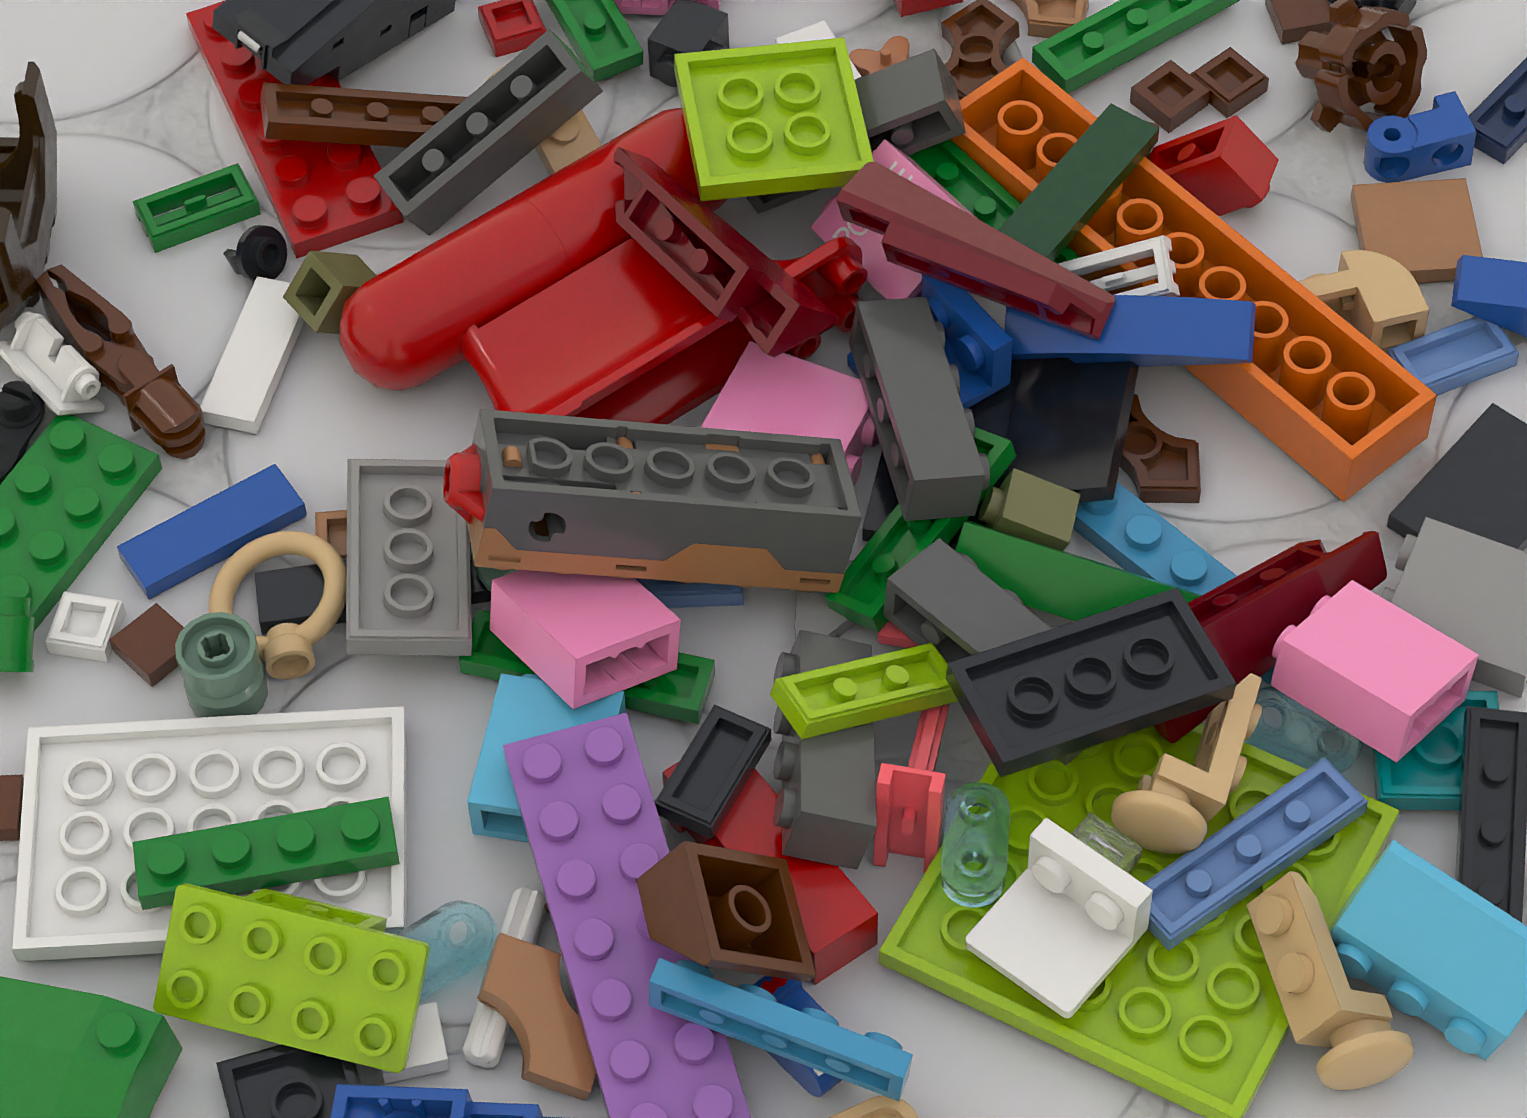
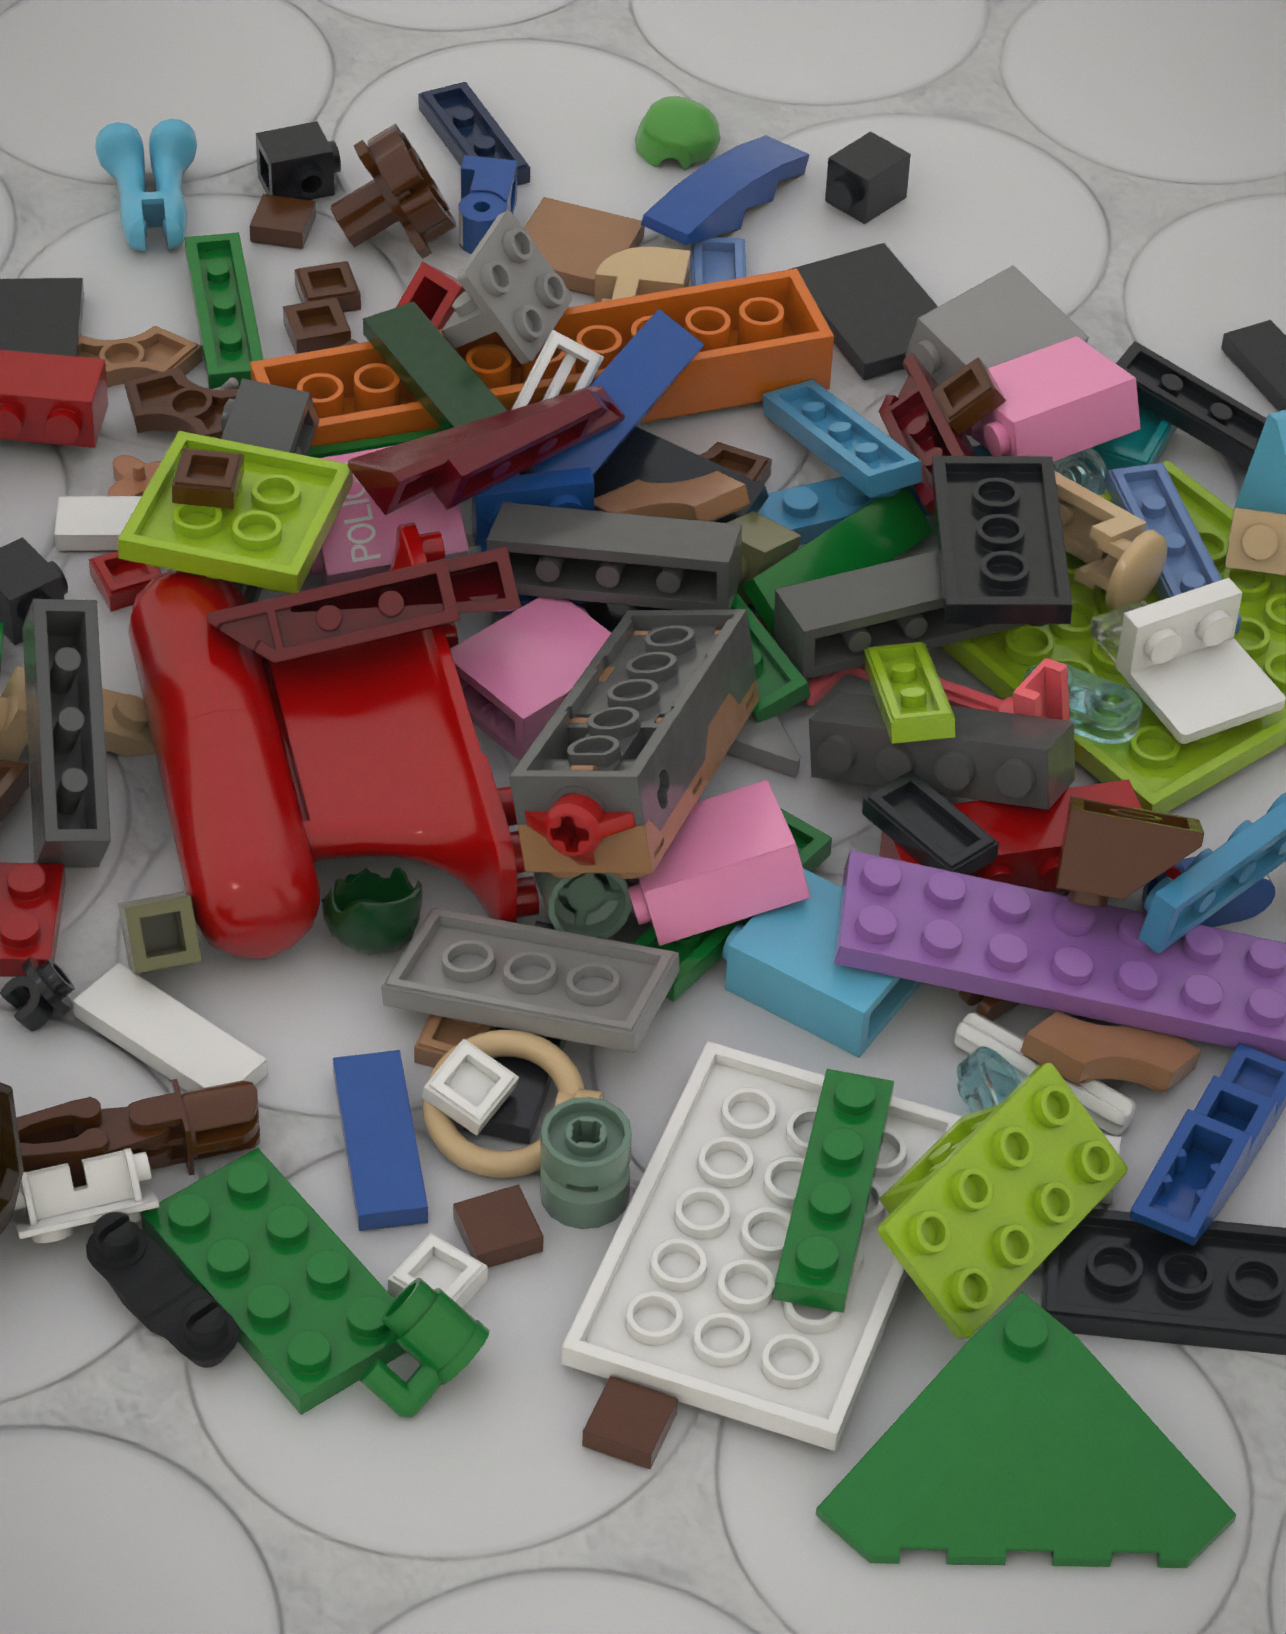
camera: 70 degrees left, 10 degrees down
(266, 560) = (470, 1087): none -> white tile
(437, 420) = (373, 911): none -> dark green hair
(780, 78) = (208, 478): none -> reddish brown tile
(1029, 422) = (693, 499): none -> medium nougat tile
(1203, 184) = (508, 292): none -> light grey bracket
(1234, 525) = (842, 439): none -> dark azure plate
(1313, 592) = (968, 396): none -> reddish brown tile

